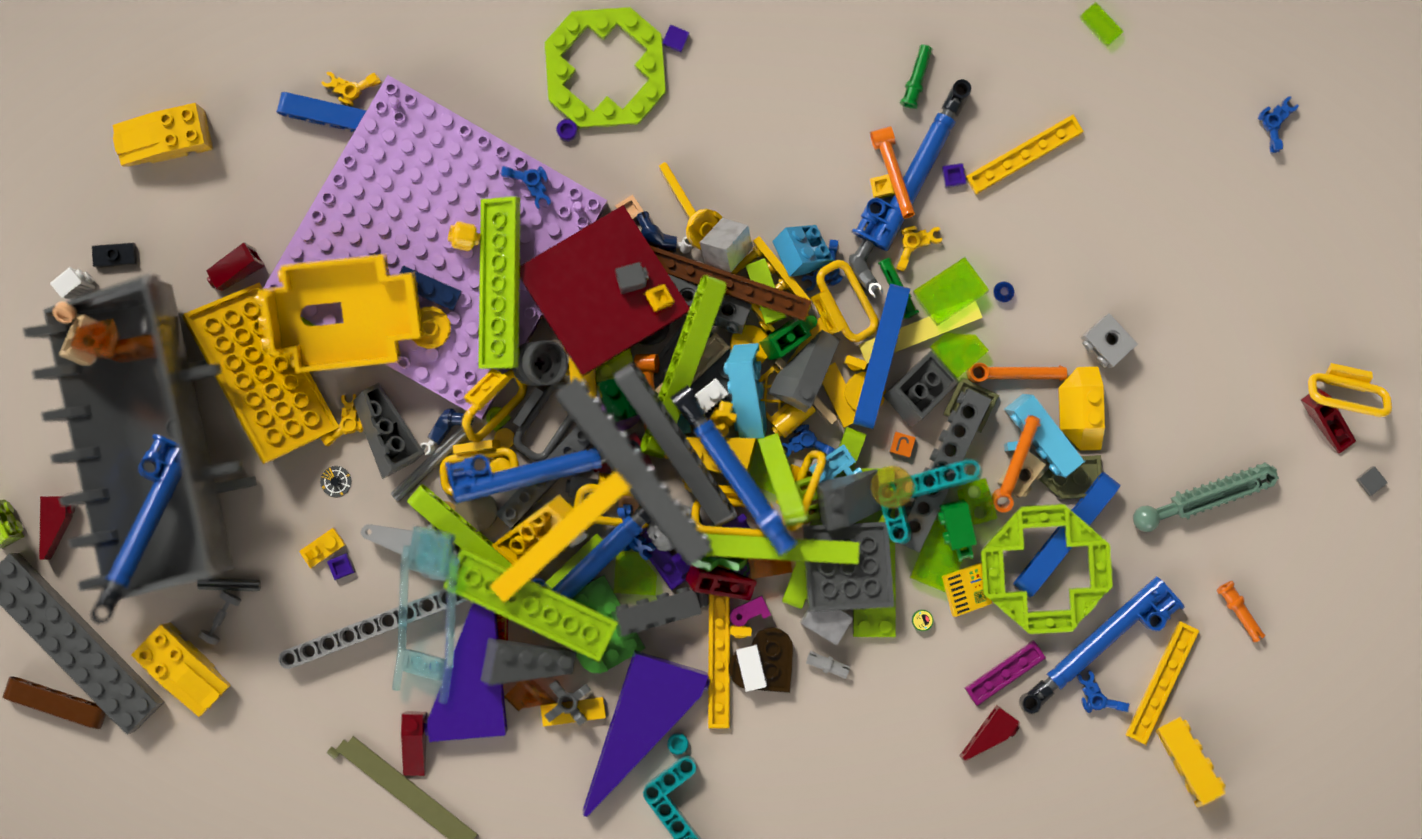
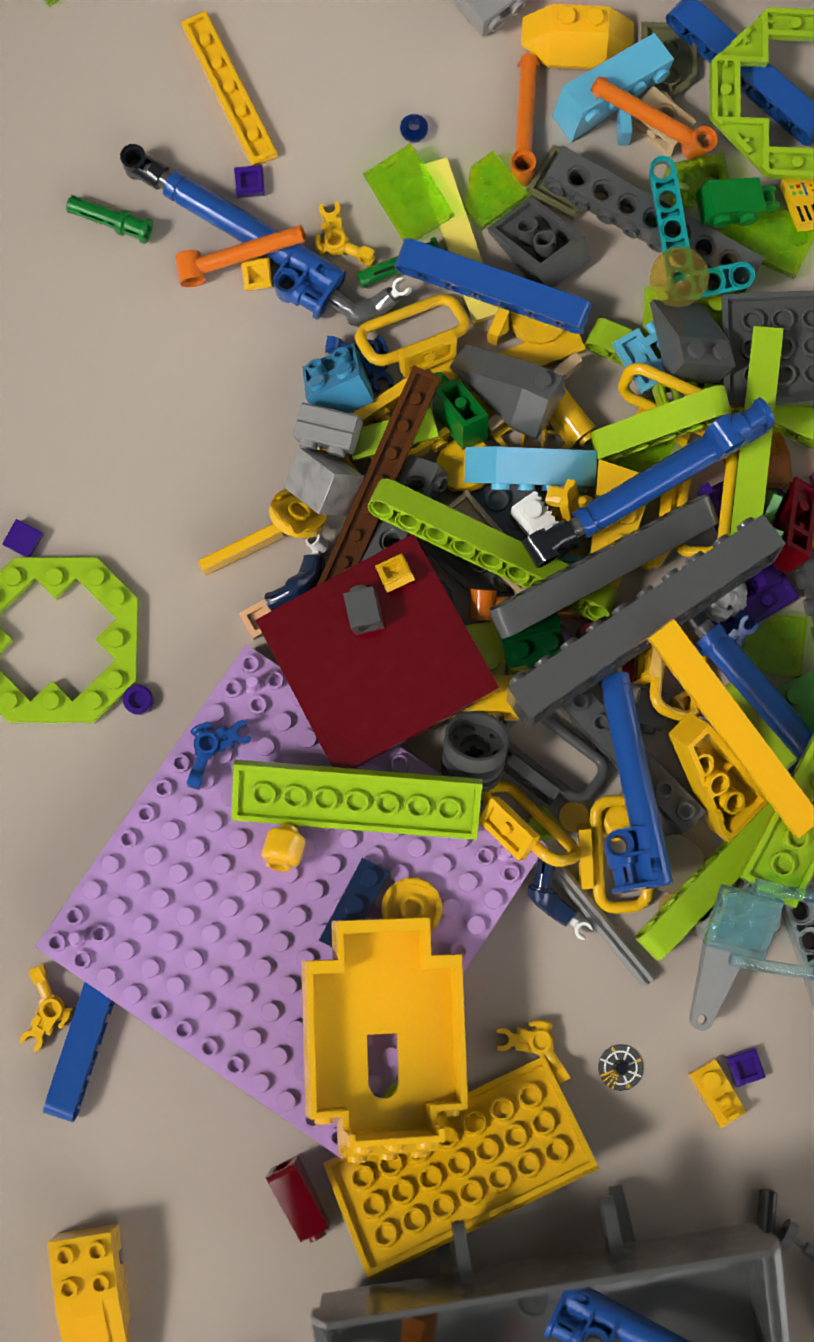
camera: 85 degrees left, 5 degrees down
(386, 431) = (557, 985): dark grey wedge -> none
(763, 244) = (327, 429): none -> light grey brick
(805, 440) = (599, 398): blue piece -> none
(902, 444) = (612, 274): orange tile -> none

